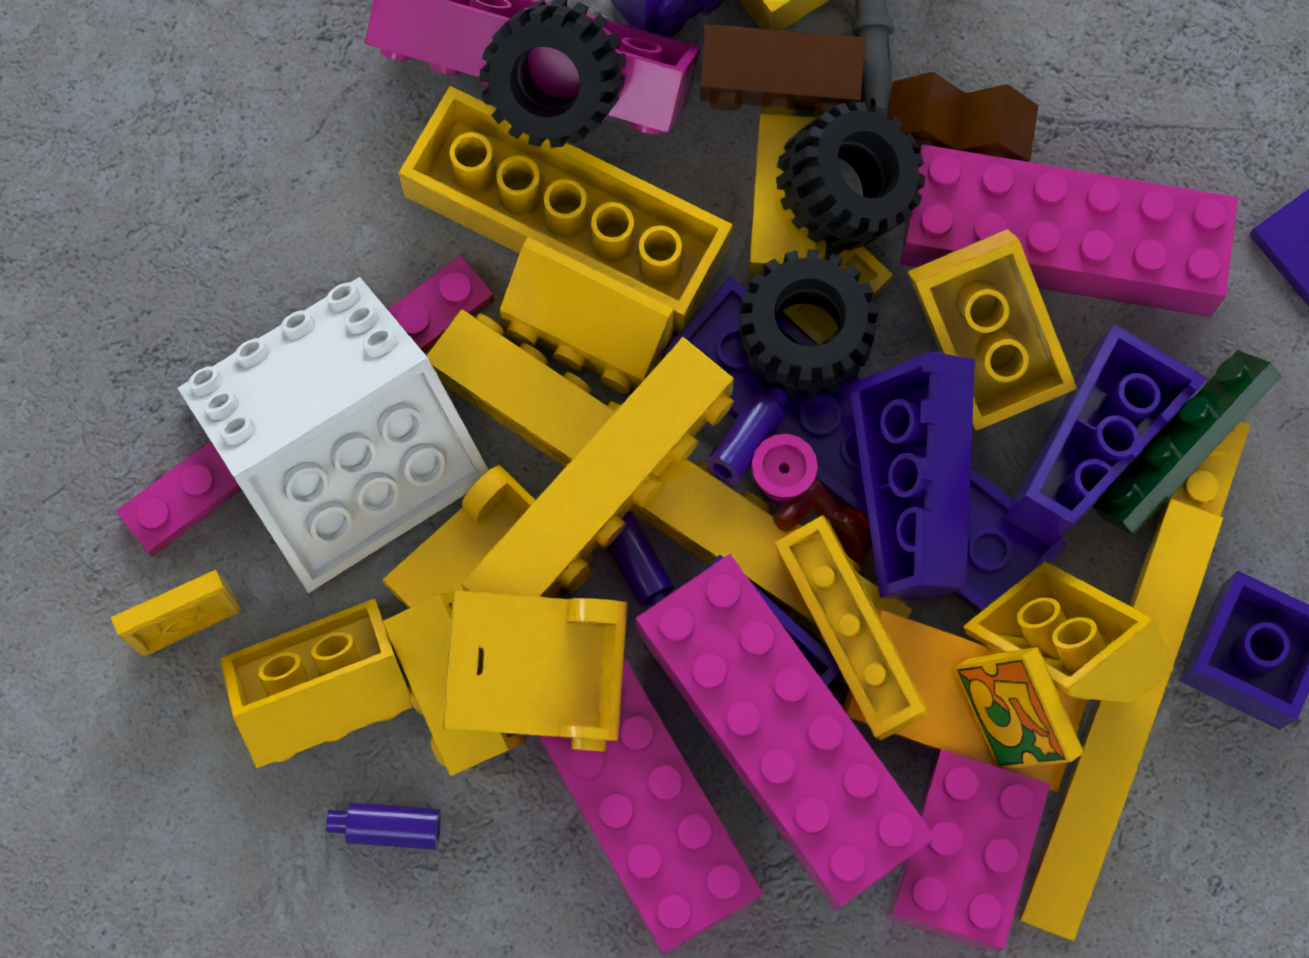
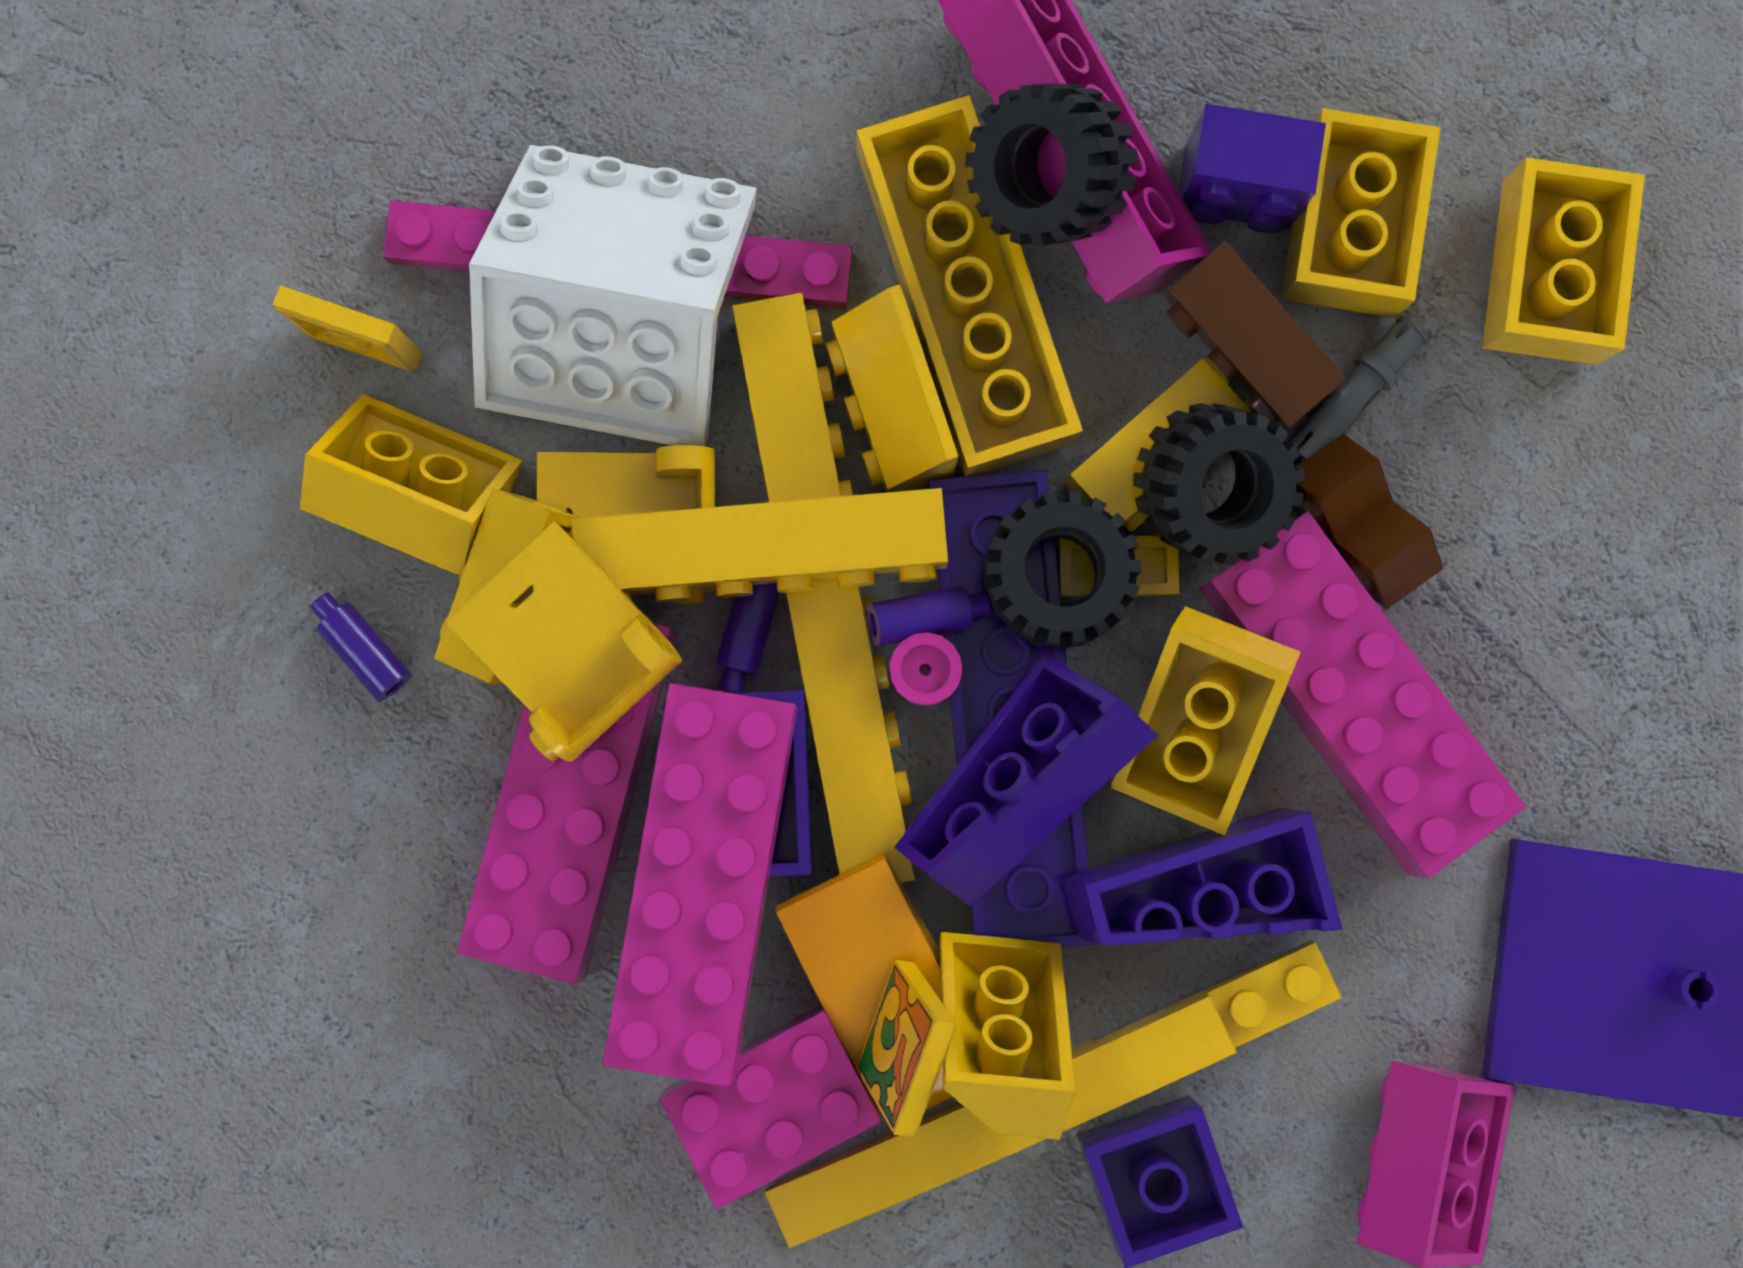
camera: 45 degrees right, 10 degrees up
(848, 524) = (927, 757): clear red plate -> none
(852, 628) = (843, 851): yellow plate -> none
(1186, 441) = (1278, 963): dark green plate -> none

